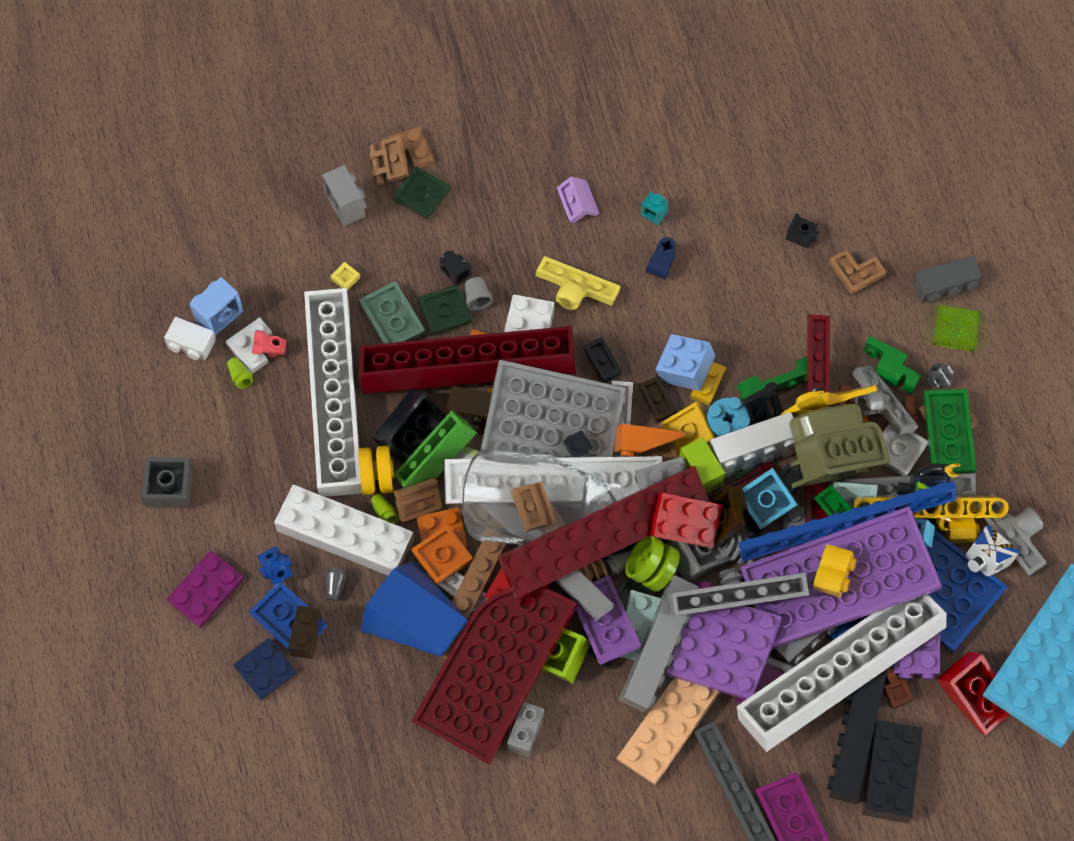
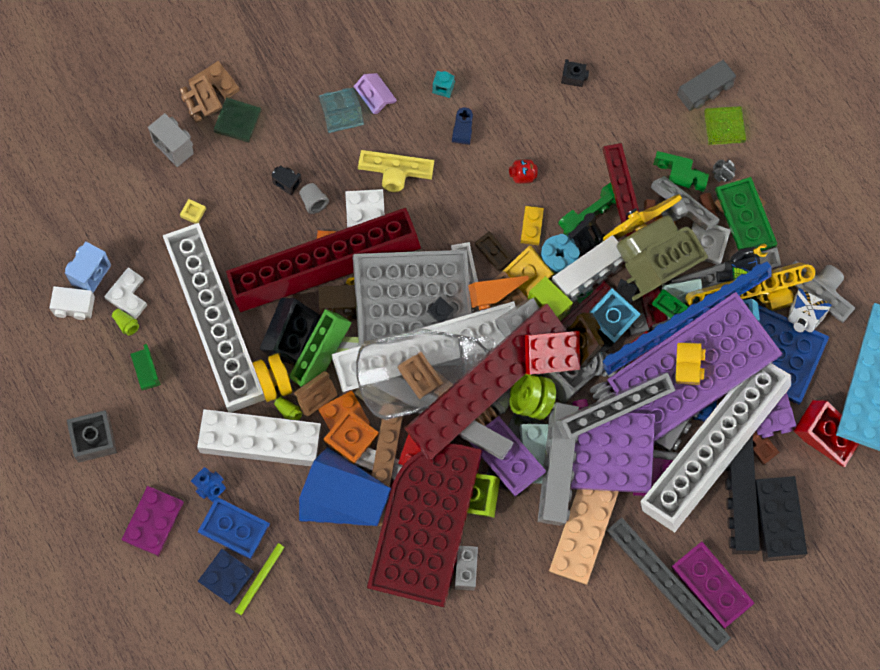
camera: 20 degrees left, 5 degrees up
(246, 427) = (145, 368): none -> green panel
(264, 344) = (140, 290): coral plate -> none
(299, 681) = (259, 579): none -> lime bar
(305, 632) = (253, 536): dark brown brick -> none
(335, 583) = (265, 485): dark grey cone -> none
(392, 315) = (244, 236): sand green plate -> none
(444, 310) = (288, 219): clear green plate -> none
(535, 209) = (341, 110): none -> clear light blue bracket
(602, 360) = (437, 229): black plate -> none
(685, 362) = (509, 213): light blue brick -> none
(715, 322) = (523, 171): none -> red head
(856, 276) = (628, 101): medium nougat plate -> none

